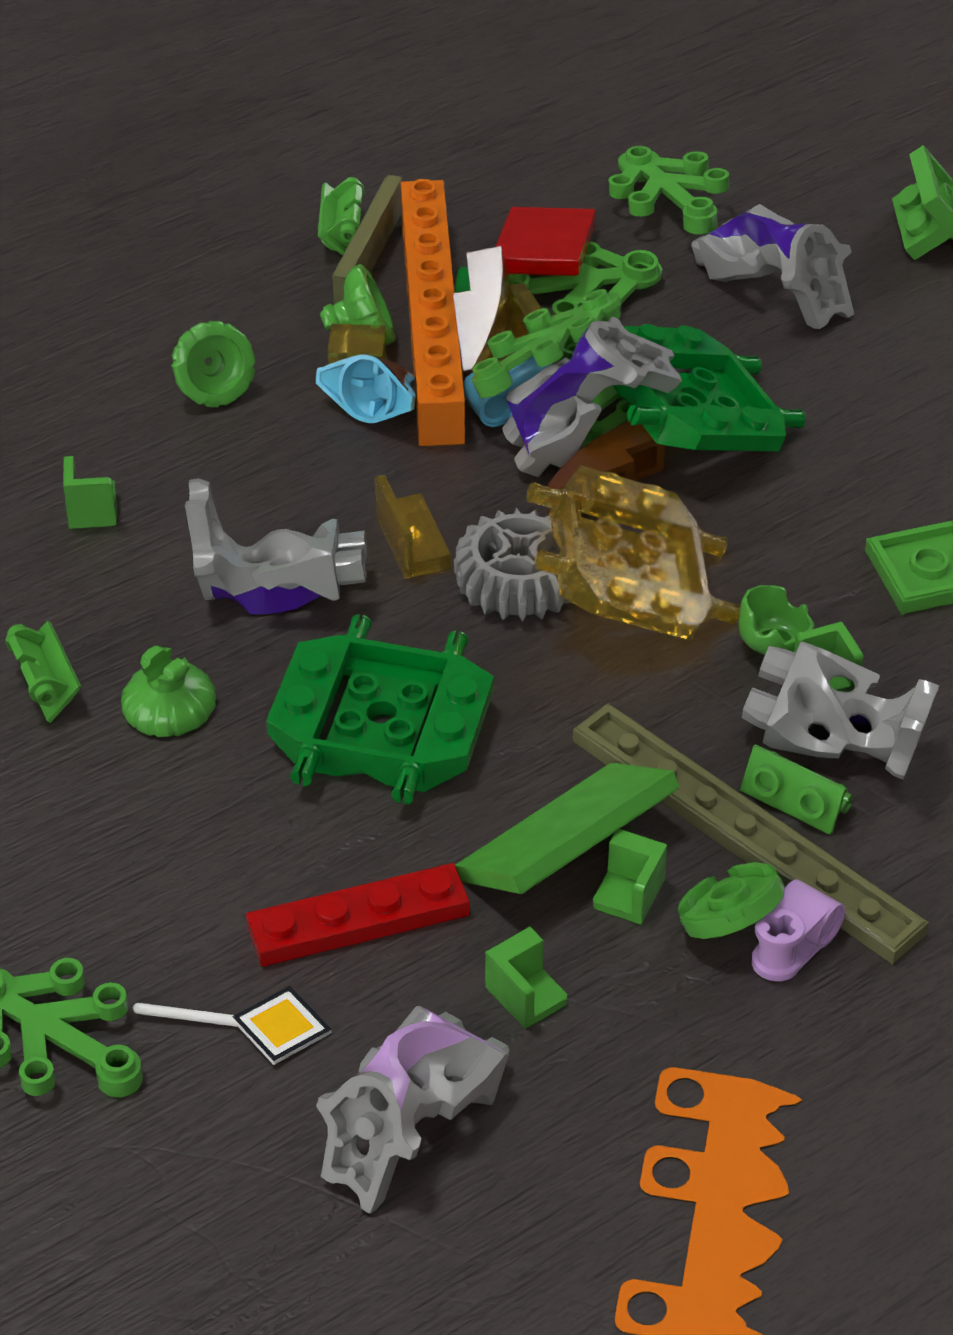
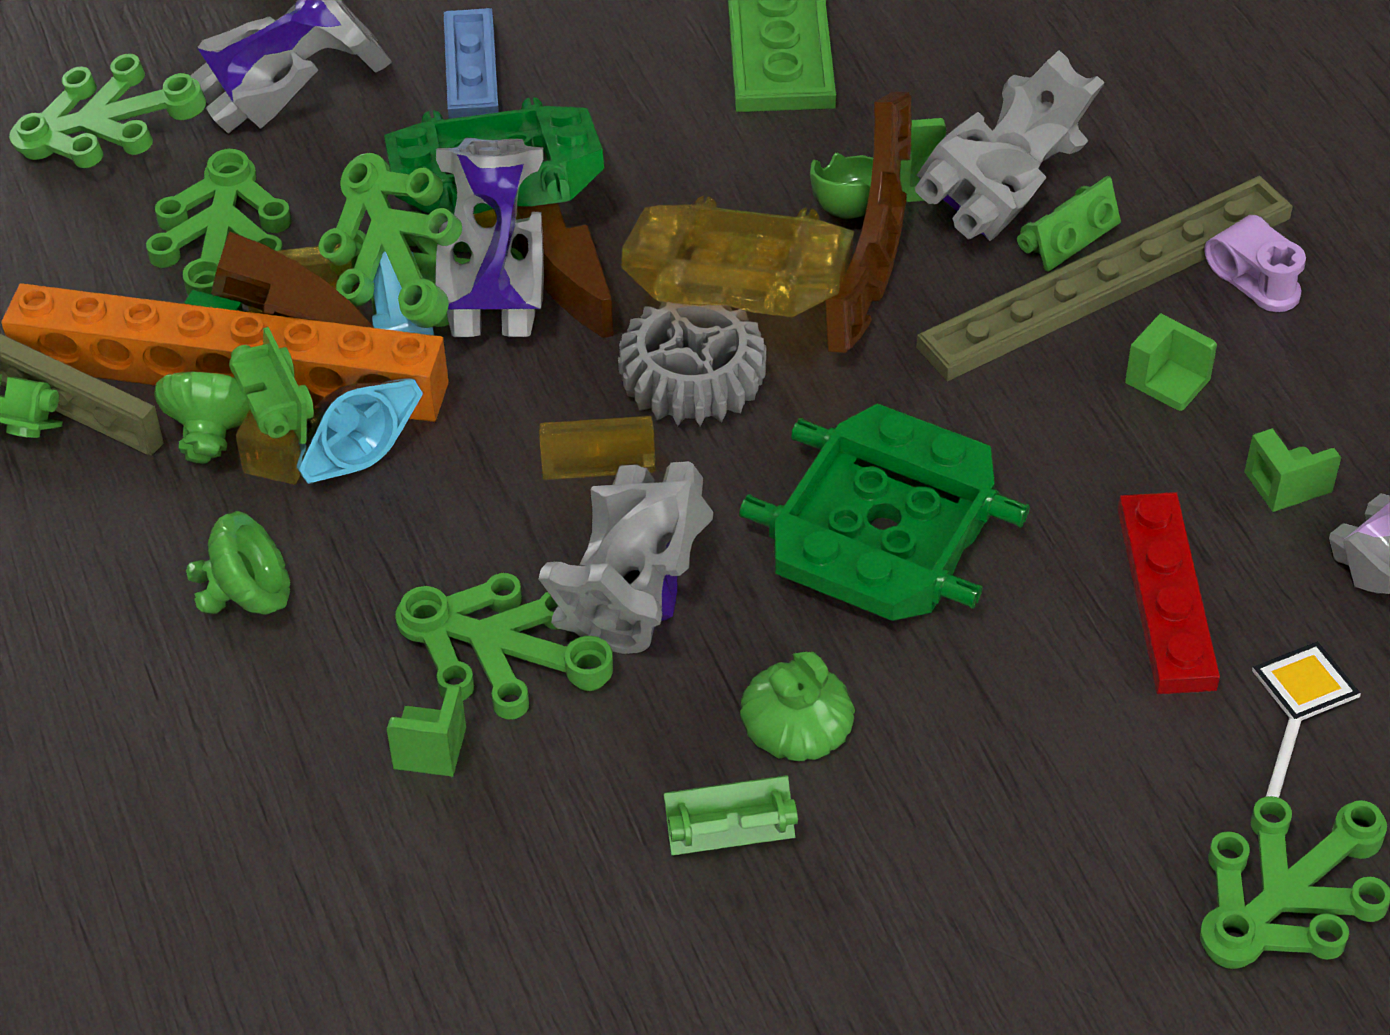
camera: 75 degrees left, 5 degrees up
(177, 563) = (495, 637): none -> bright green plant
(380, 314) = (282, 403): none -> bright green hinge
(546, 240) = (151, 233): red tile -> none
(567, 827) = (1106, 390): bright green tile -> none
(705, 648) = (881, 230): none -> reddish brown tile
(733, 903) = (1228, 290): bright green tile -> none
(840, 374) = (470, 63): none -> medium blue tile

